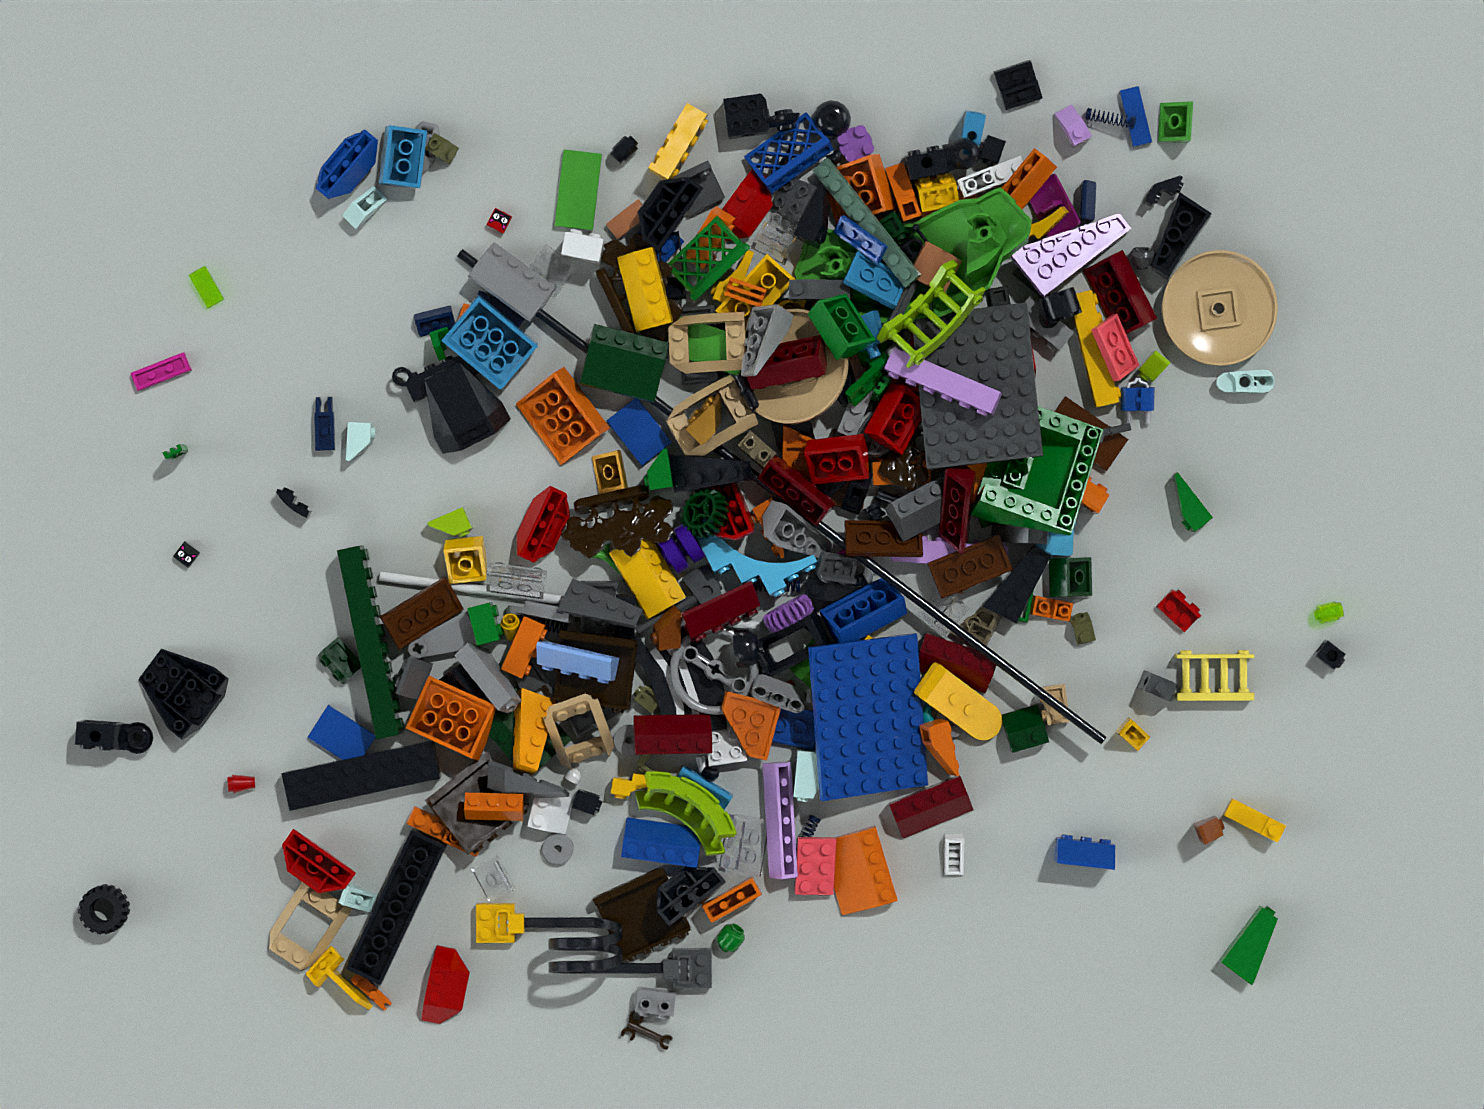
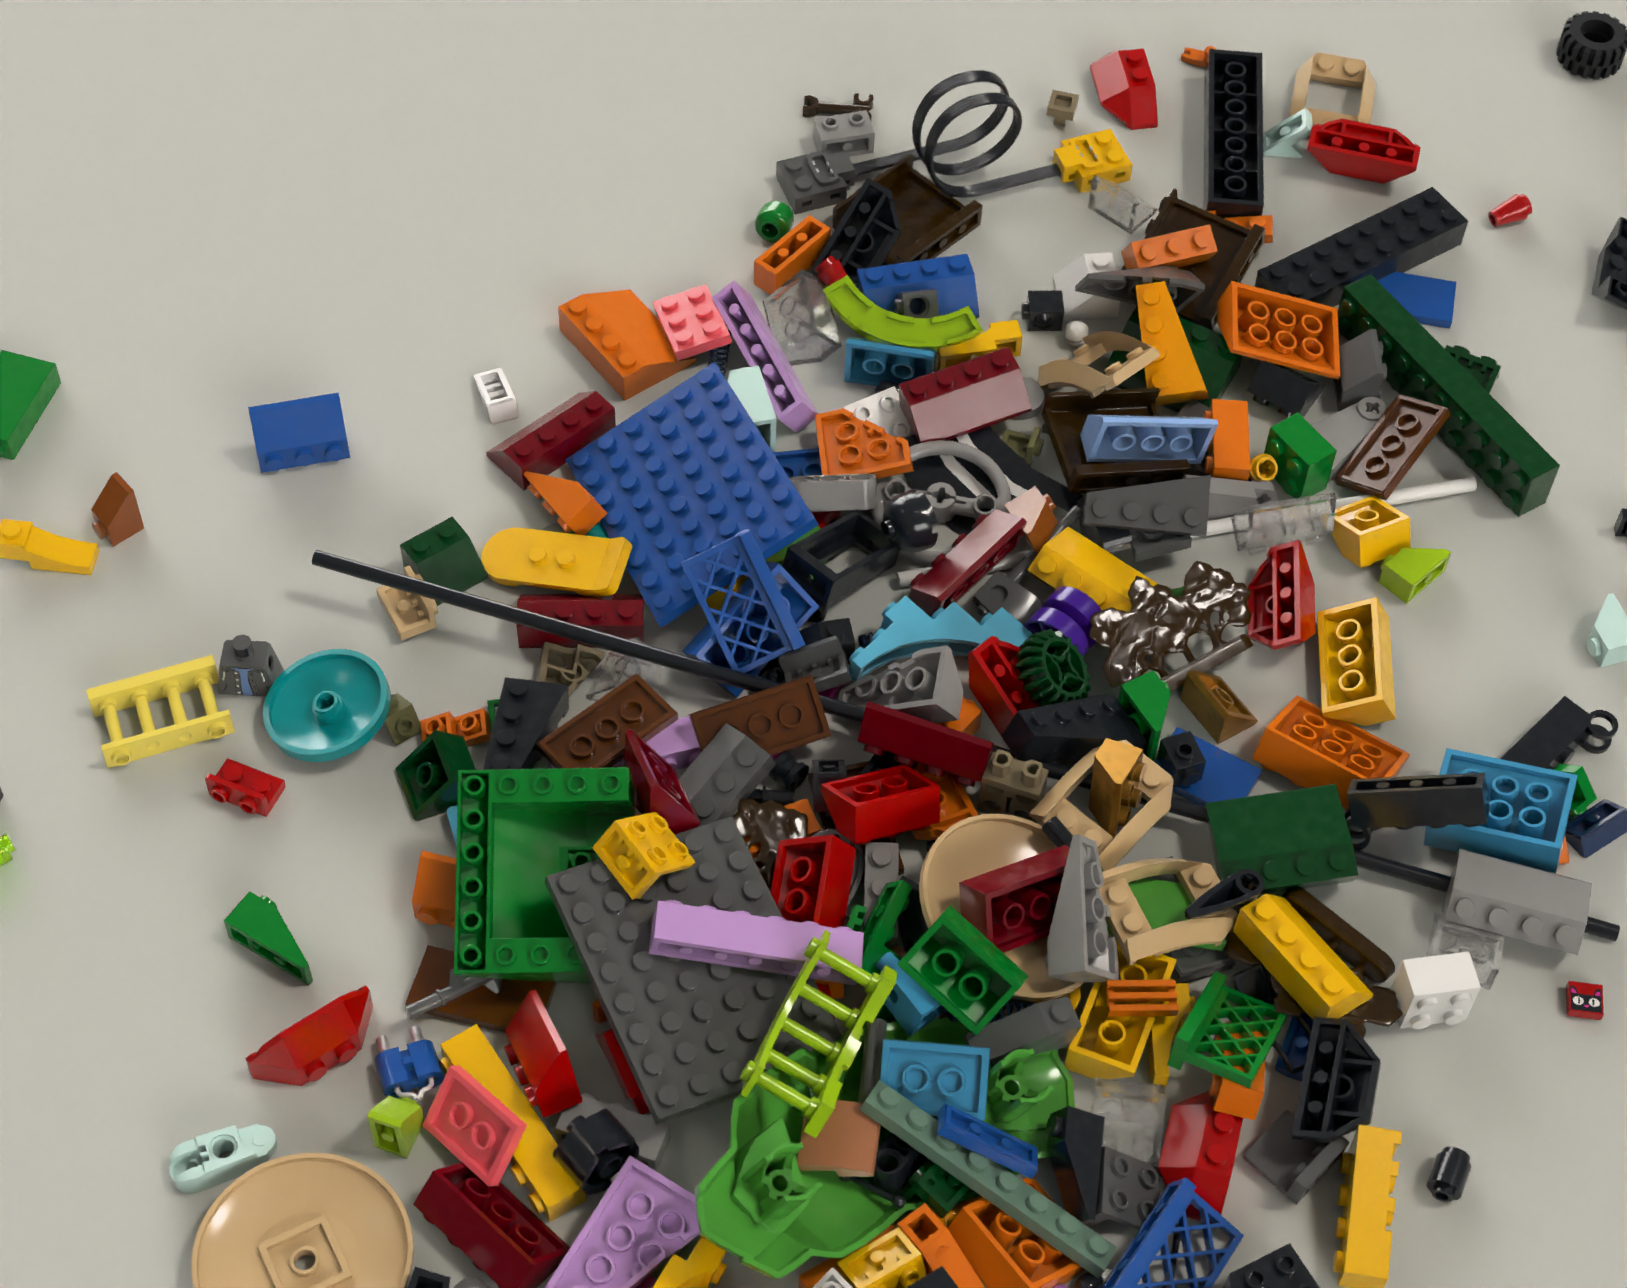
camera: 155 degrees right, 35 degrees down
(326, 967) = (1279, 60): yellow piece -> none
(462, 409) = (1484, 709): black wedge -> none
(488, 676) = (1268, 391): light grey slope -> none
(498, 976) = (1062, 106): none -> dark tan tile
(519, 469) = (1356, 663): none -> yellow slope
(543, 352) = (1416, 802): none -> black hinge
(554, 856) = (1053, 255): light grey piece -> none
(578, 189) = (1487, 1090): bright green tile -> none
(625, 220) = (1394, 1059): nougat slope -> none
(652, 436) = (1182, 758): none -> black brick
(669, 826) = (928, 300): none -> dark grey brick
(677, 329) = (1228, 894): none -> black piece
(713, 868) = (830, 271): none -> red cone
(788, 613) = (865, 588): medium lavender gear -> none
(854, 614) = (767, 590): none -> blue fence
(985, 450) = (641, 851): none -> yellow bracket
(999, 296) = (703, 1155): pearl dark grey tile -> none
(1070, 371) = (540, 1058): none -> red slope
(1121, 644) = (326, 705): none -> teal dish
(1133, 734) = (275, 603): yellow slope -> none
(1180, 429) = (315, 1042): none -> red wedge

